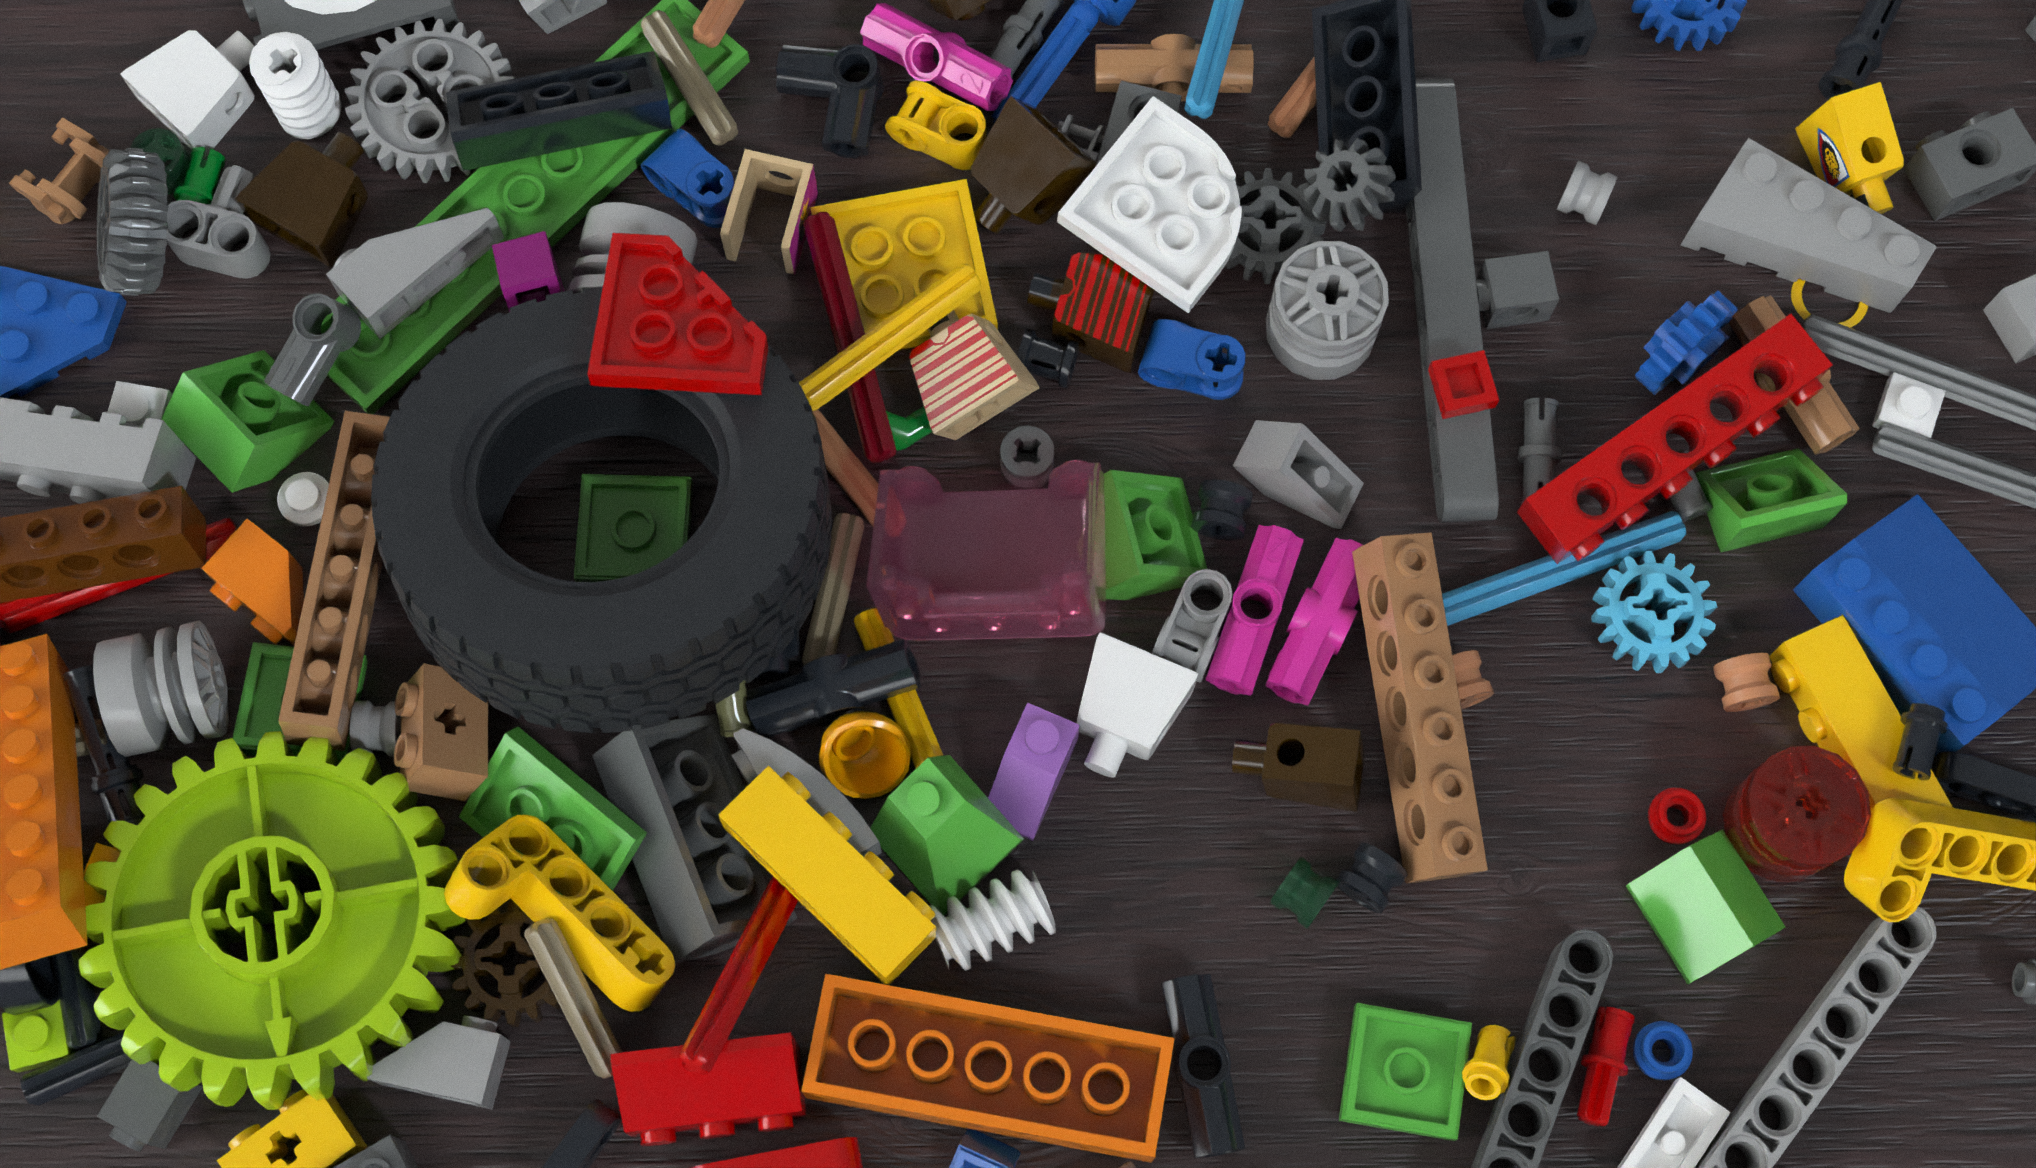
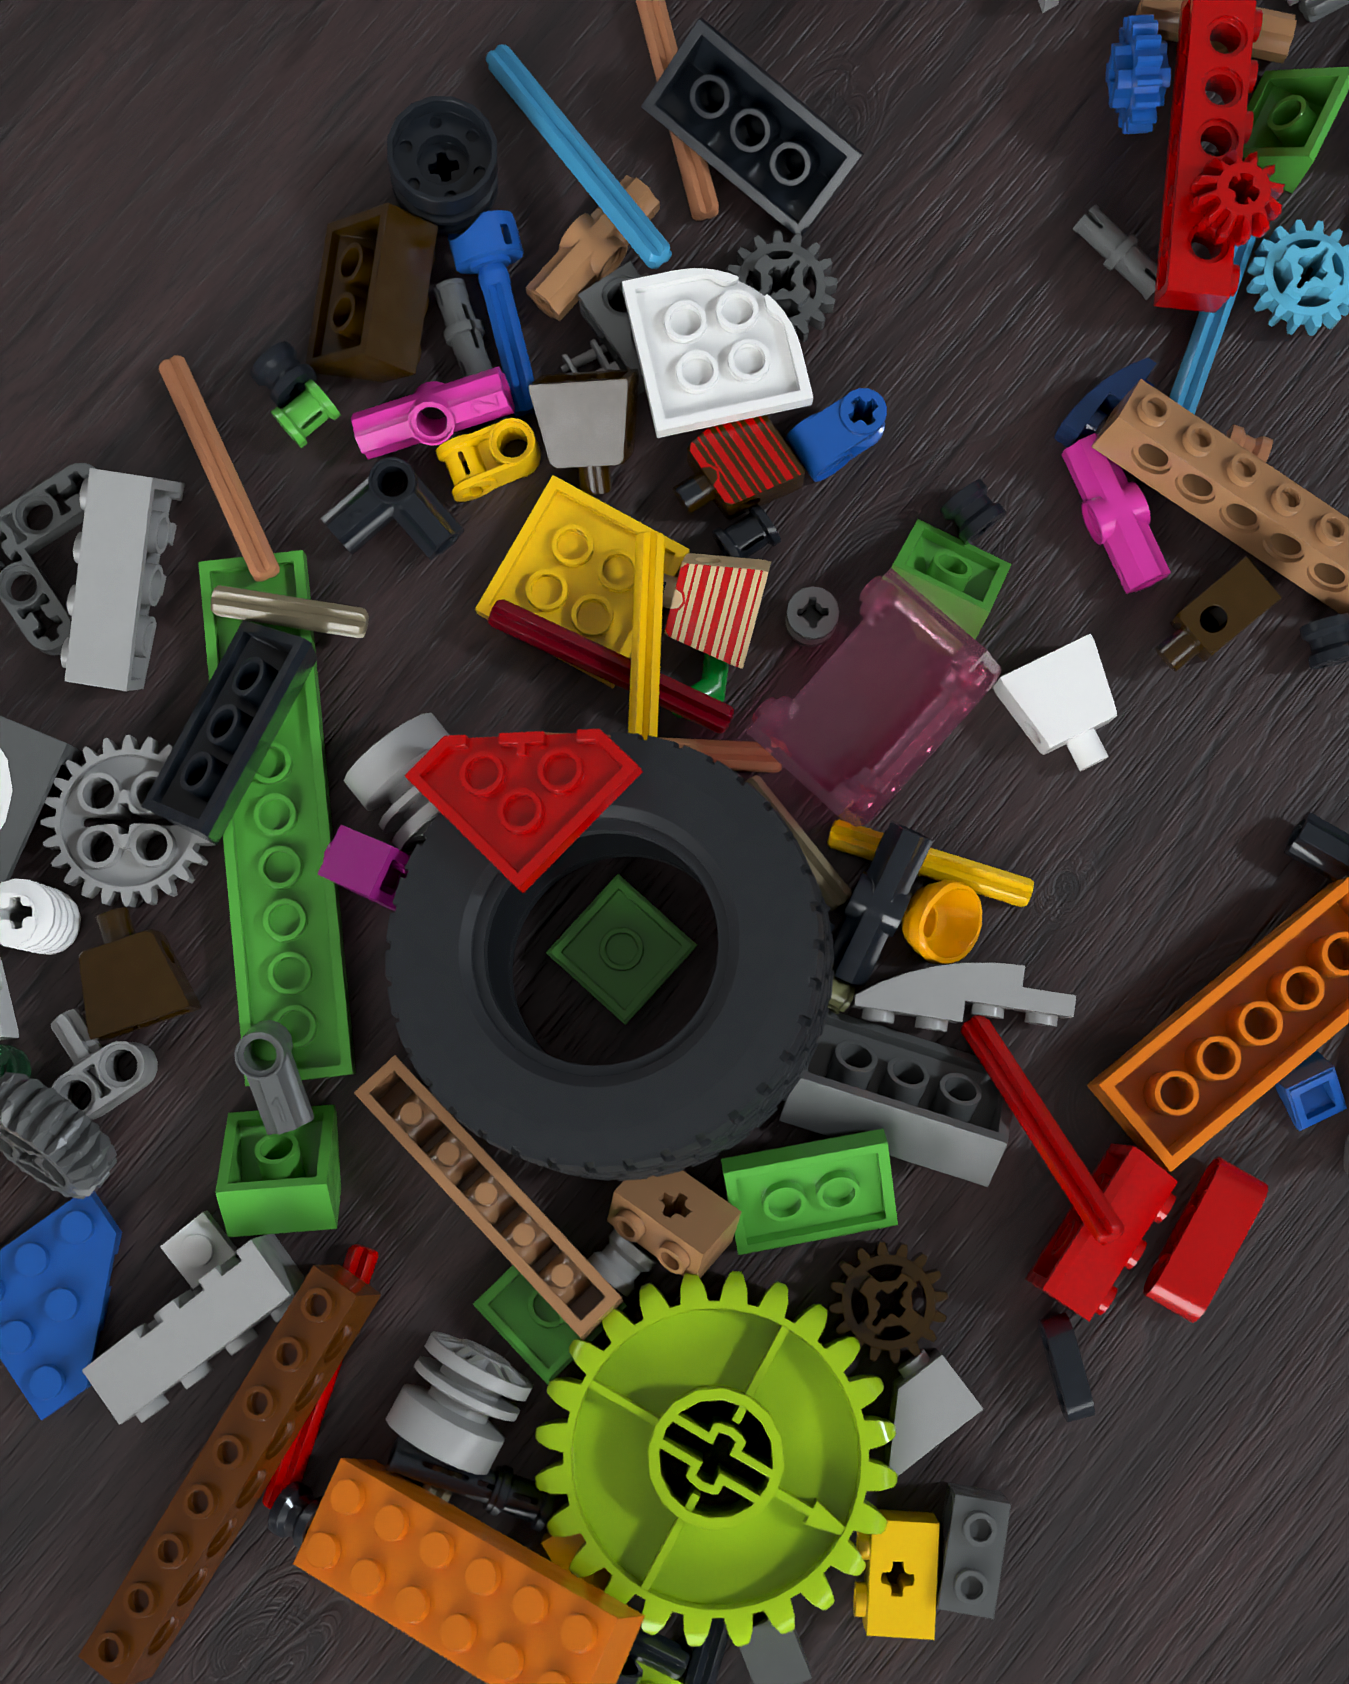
camera: 45 degrees left, 10 degrees up
(201, 176) = (44, 1055): green pin -> none
(263, 578) = (428, 1258): orange slope -> none
(303, 498) = (384, 1175): white plate -> none
(406, 268) = (266, 961): light grey slope -> none
(573, 994) = (957, 1278): dark tan axle -> none
(625, 964) = (978, 1228): yellow beam -> none
(691, 177) = (363, 679): blue piece -> none
(754, 174) = (441, 602): tan piece -> none
(829, 875) = (1032, 1022): yellow brick -> none
(943, 831) = (1051, 912): bright green slope -> none
(992, 919) = (1142, 933): white piece -> none
(1033, 768) = (1054, 812): medium lavender slope -> none
(1191, 633) = (1046, 608): light grey piece -> none
(1244, 639) = (1052, 522): dark pink piece -> none
(1298, 471) = (989, 432): light grey slope -> none
(1304, 892) = (1303, 696): clear green wheel -> none
(1320, 337) = (890, 331): light grey wheel -> none
(1341, 168) = (822, 184): dark grey gear -> none
(1368, 526) = (1100, 402): none -> dark blue slope
(1448, 307) = (971, 226): dark grey beam -> none
(1463, 384) = (1038, 257): red plate -> none
(1517, 290) = (984, 157): dark grey brick -> none
(1587, 192) = (953, 40): light grey wheel -> none
(1658, 467) = (1255, 200): none -> red gear

